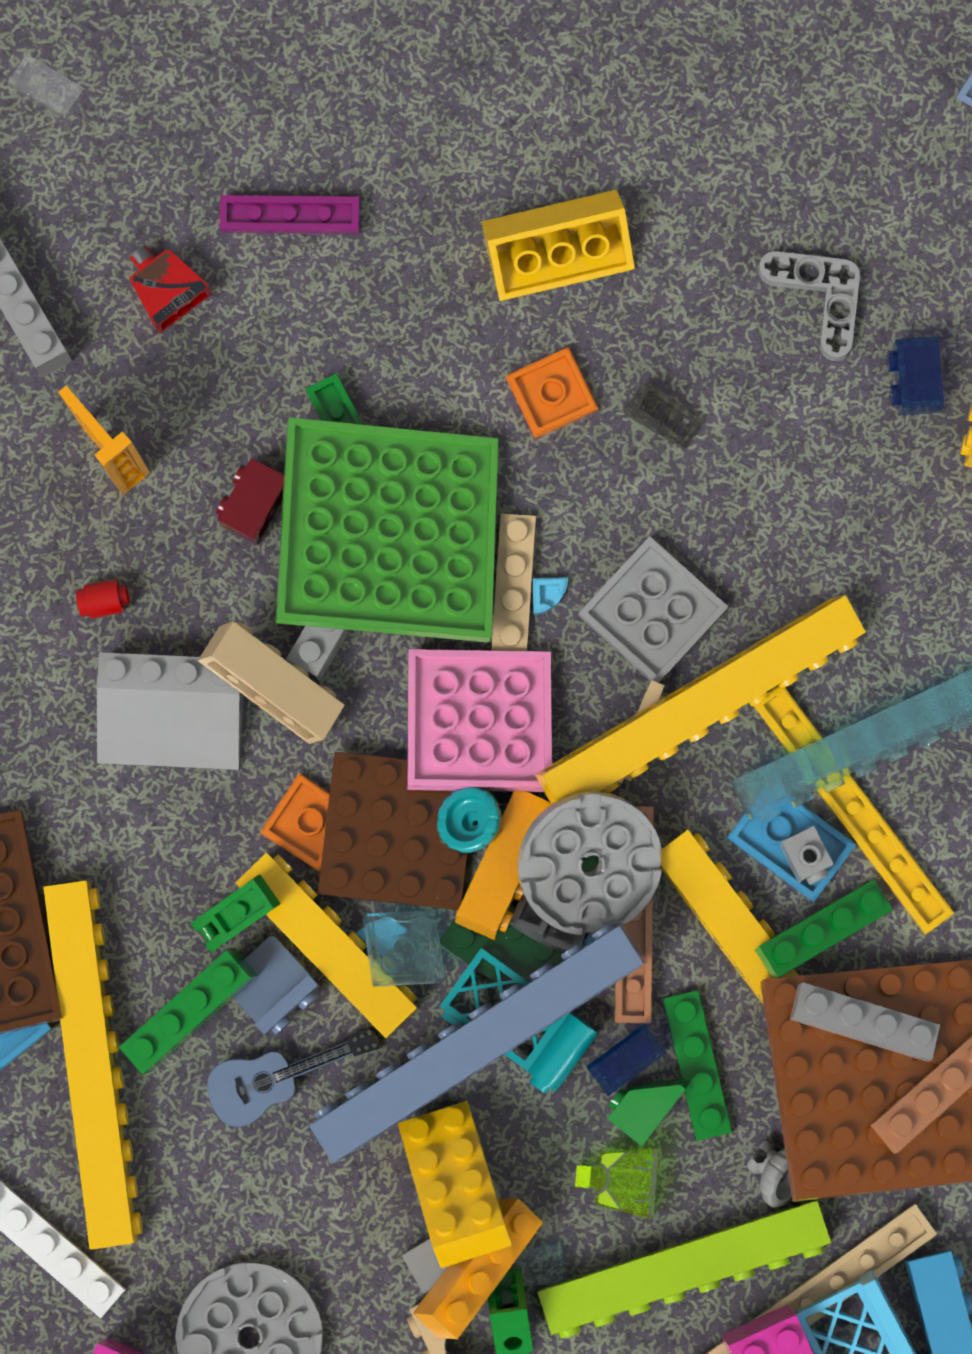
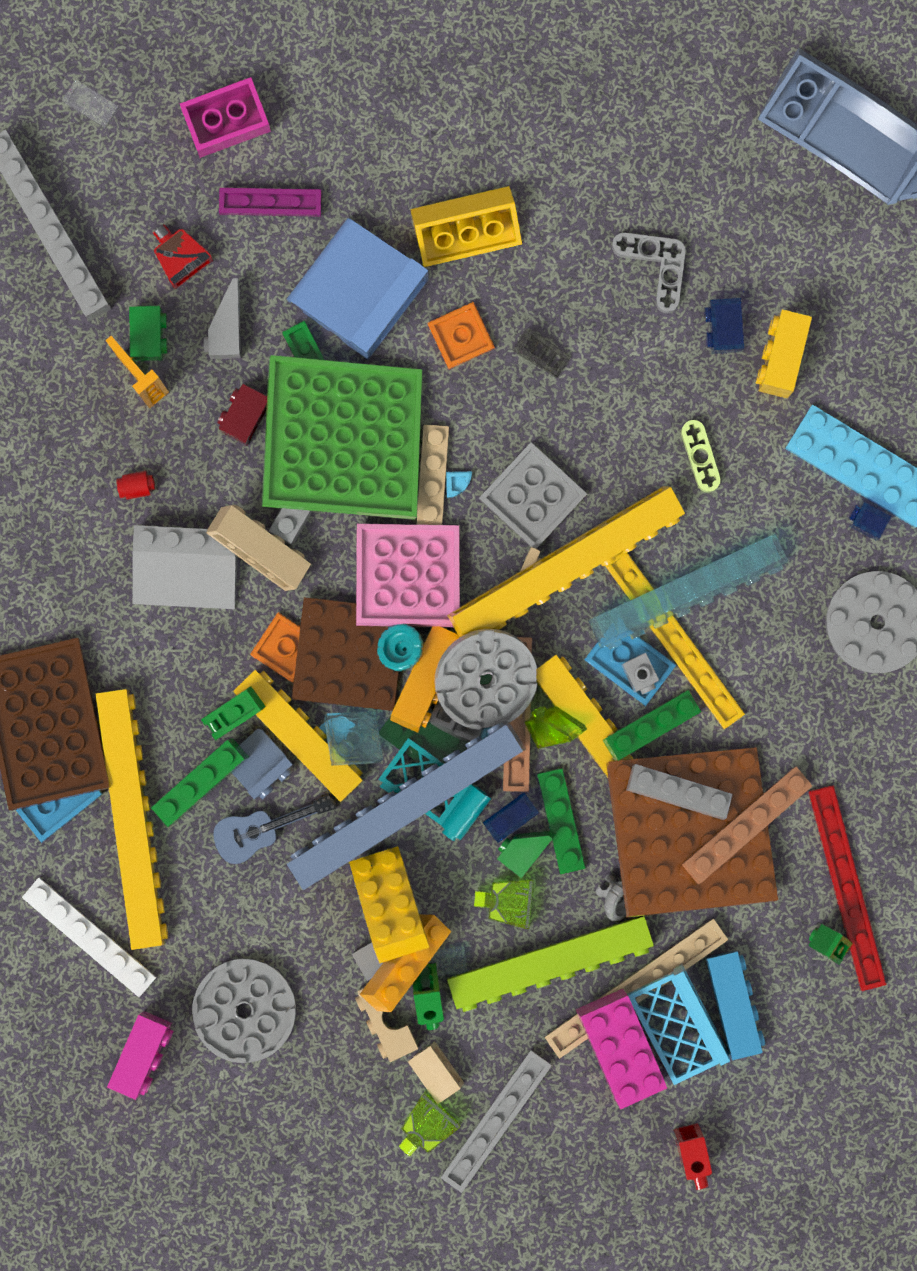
camera: 10 degrees left, 5 degrees up
(120, 391) = (147, 333): none -> green brick
(227, 385) = (225, 331): none -> light grey slope
(229, 101) = (225, 117): none -> dark pink brick
(412, 328) = (359, 287): none -> medium blue panel
(684, 931) = (553, 727): none -> clear neon green slope
(868, 533) = (706, 447): none -> yellowish green beam

